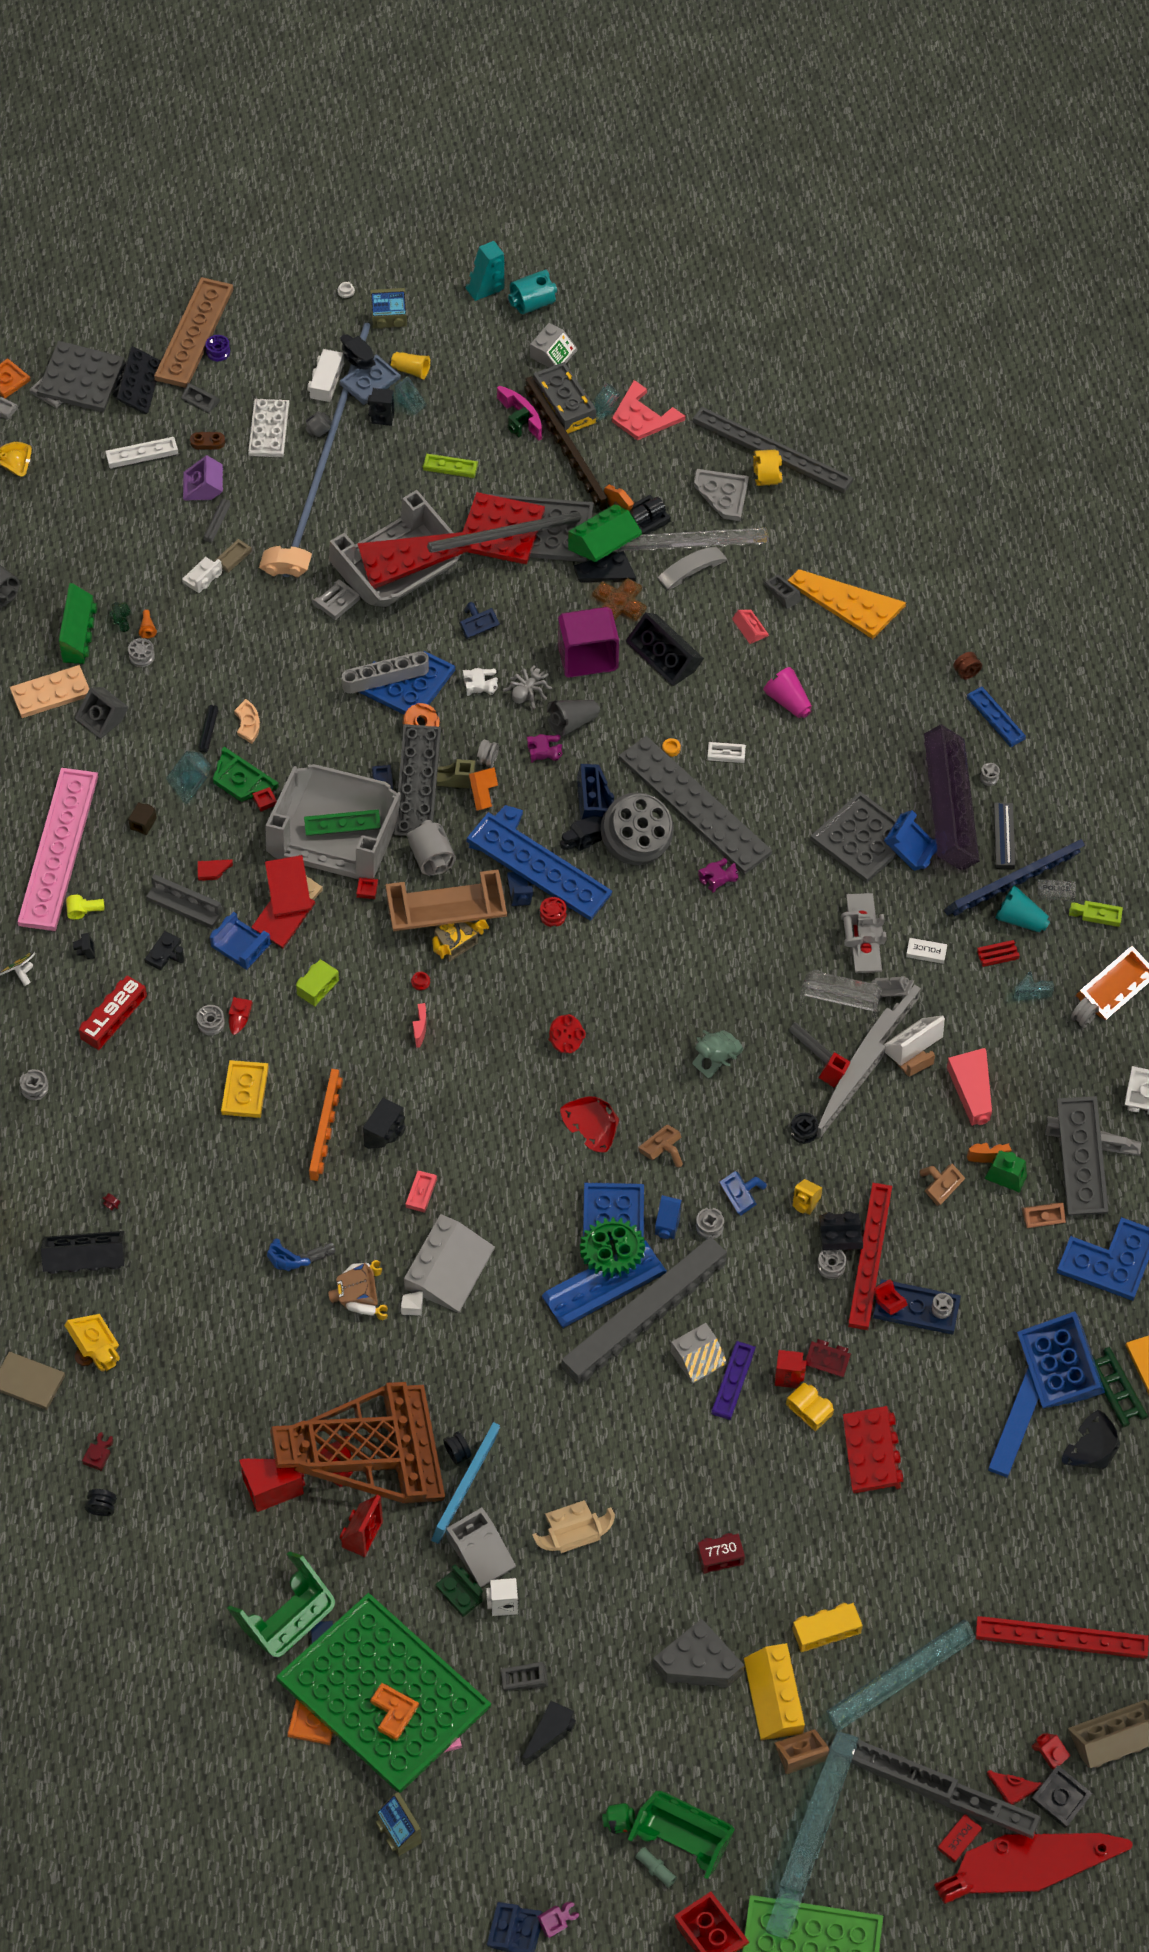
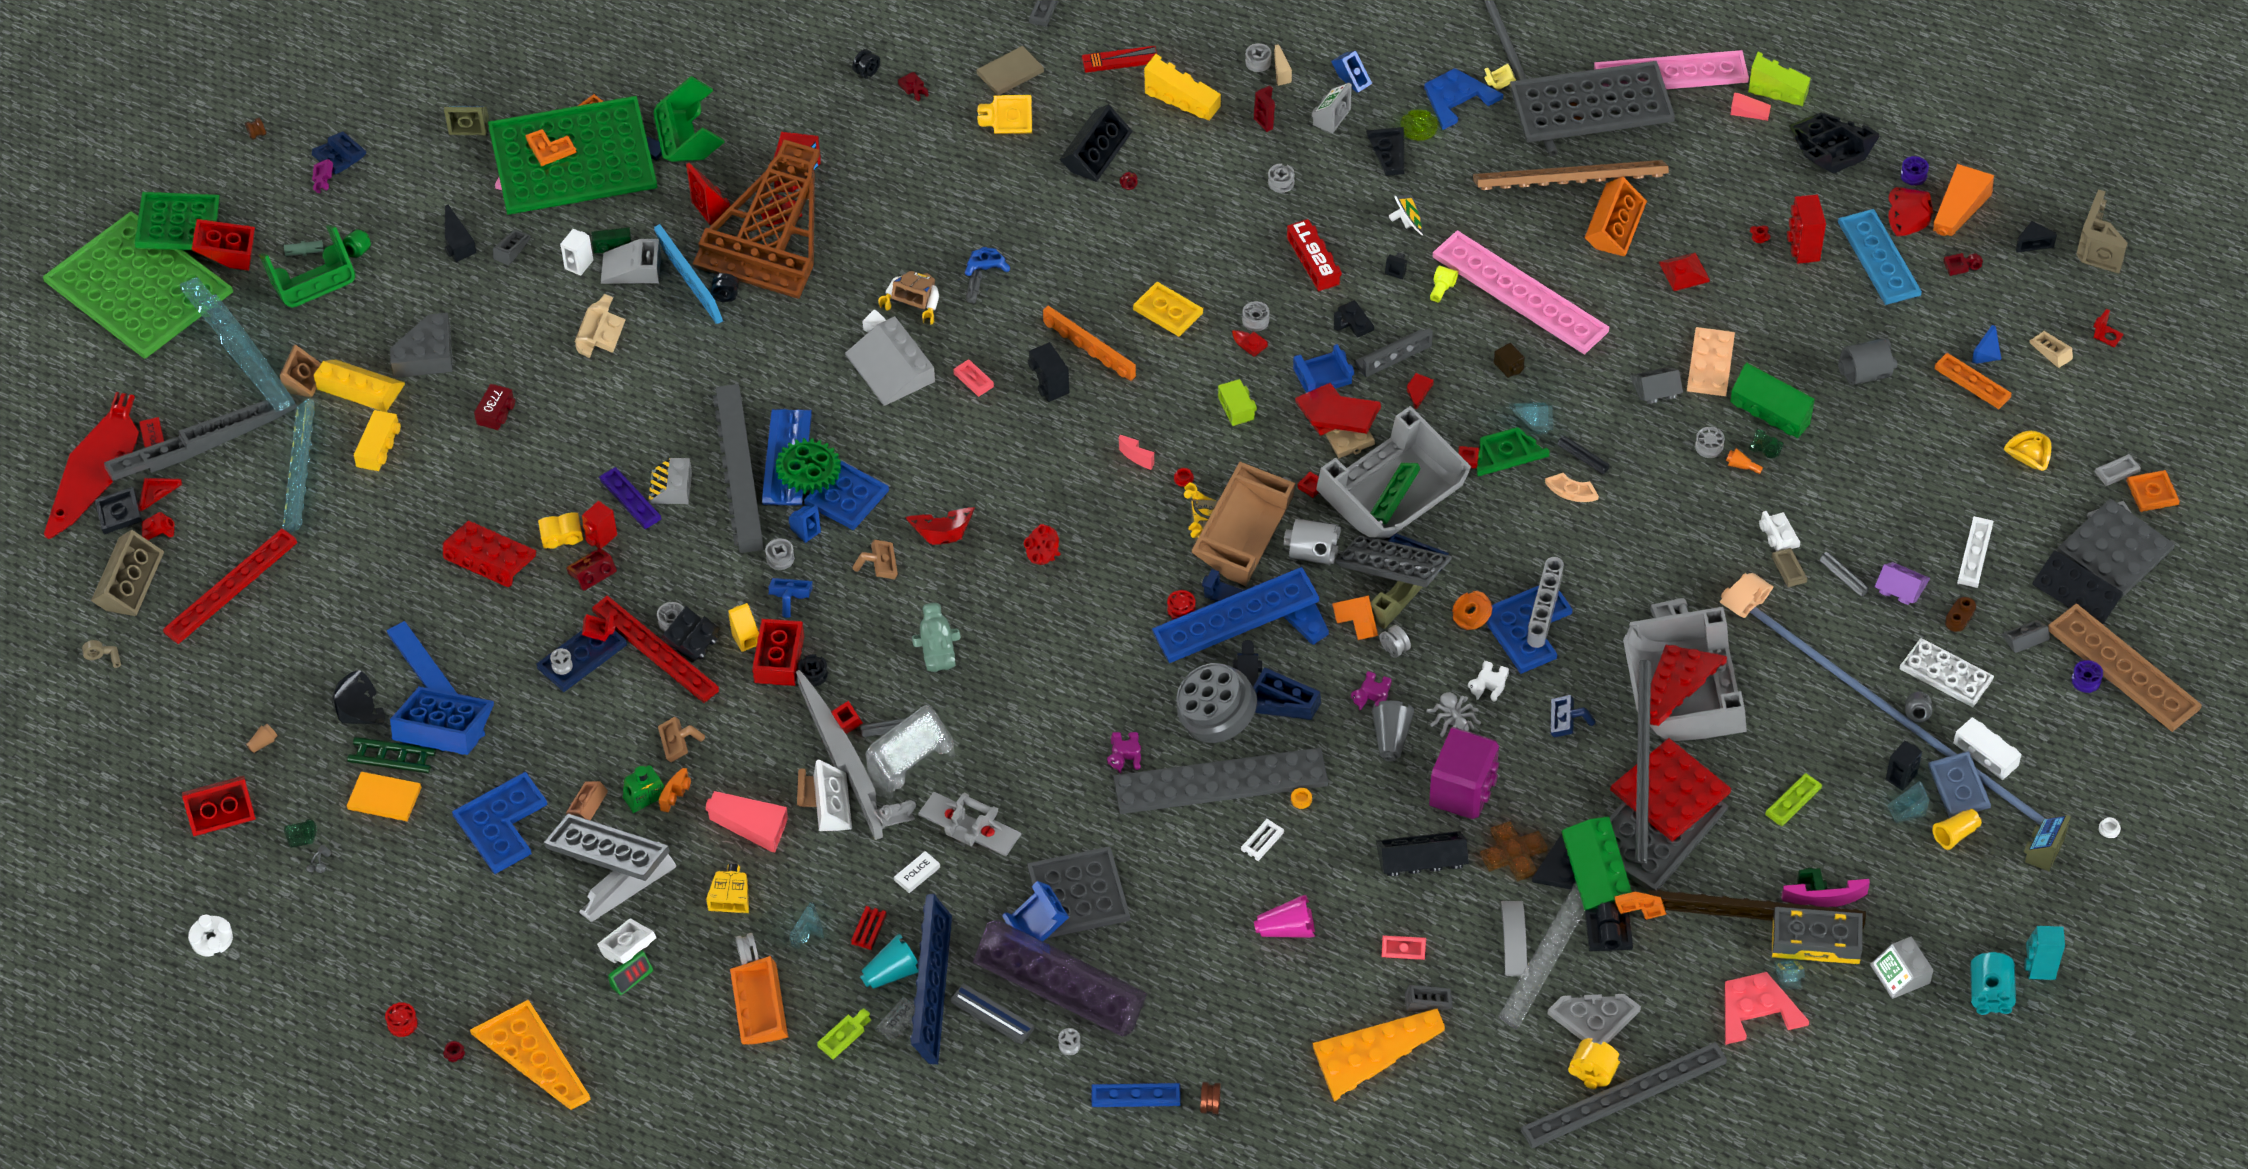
camera: 125 degrees right, 5 degrees down
(357, 352) = (1995, 778): black hinge -> none
(810, 1156) = (778, 652): none -> red brick
(1044, 1058) = (729, 891): none -> yellow torso

